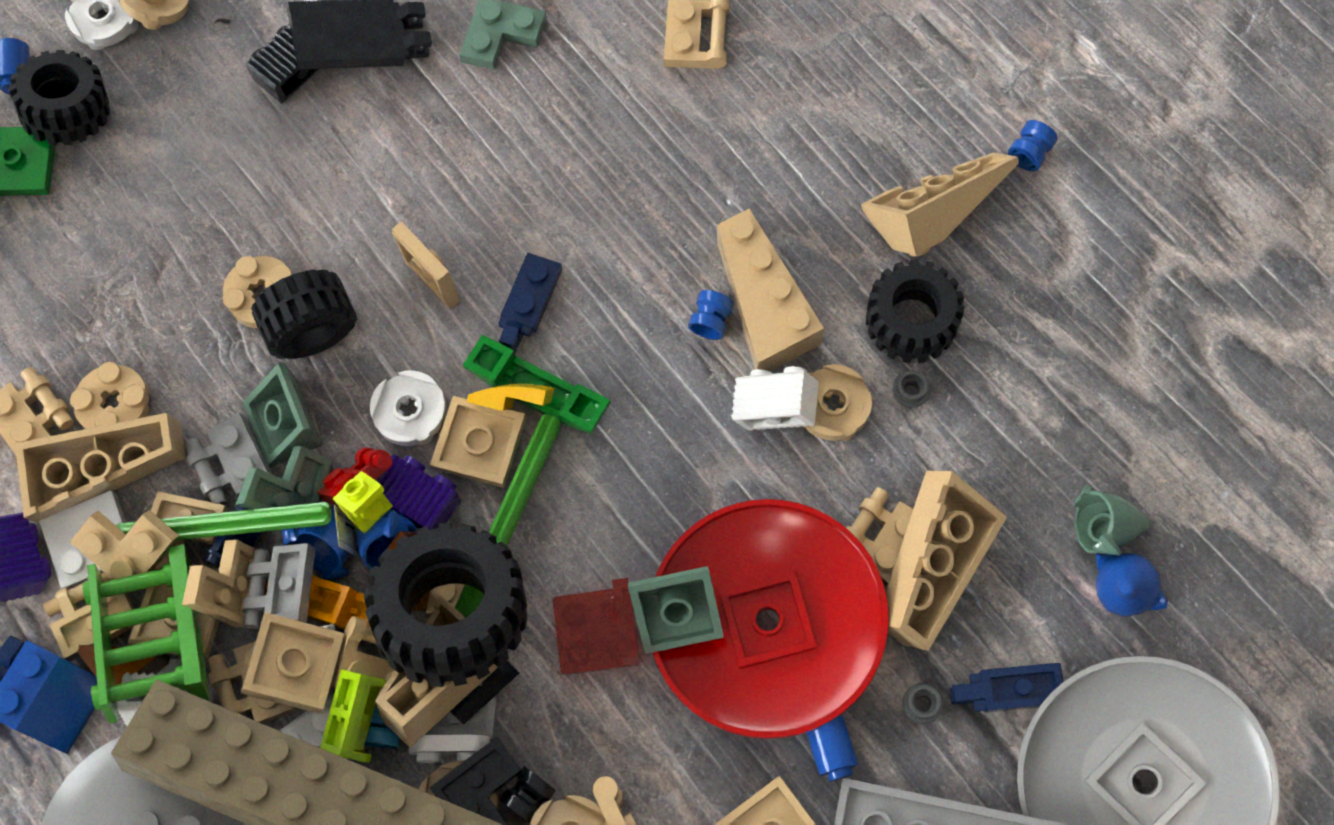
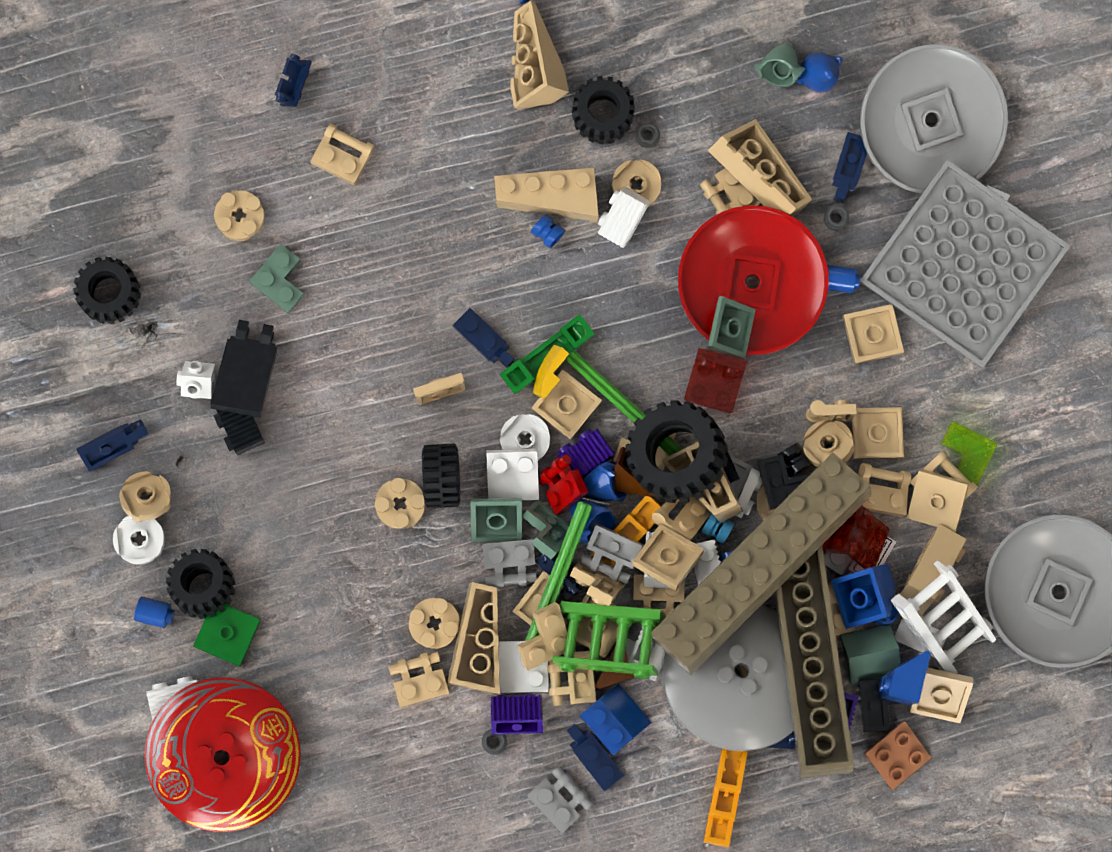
camera: 75 degrees left, 10 degrees up
(349, 411) = (513, 474): none -> white plate
(351, 715) = (712, 535): lime hinge -> none
(363, 501) = (588, 479): neon yellow bracket -> none

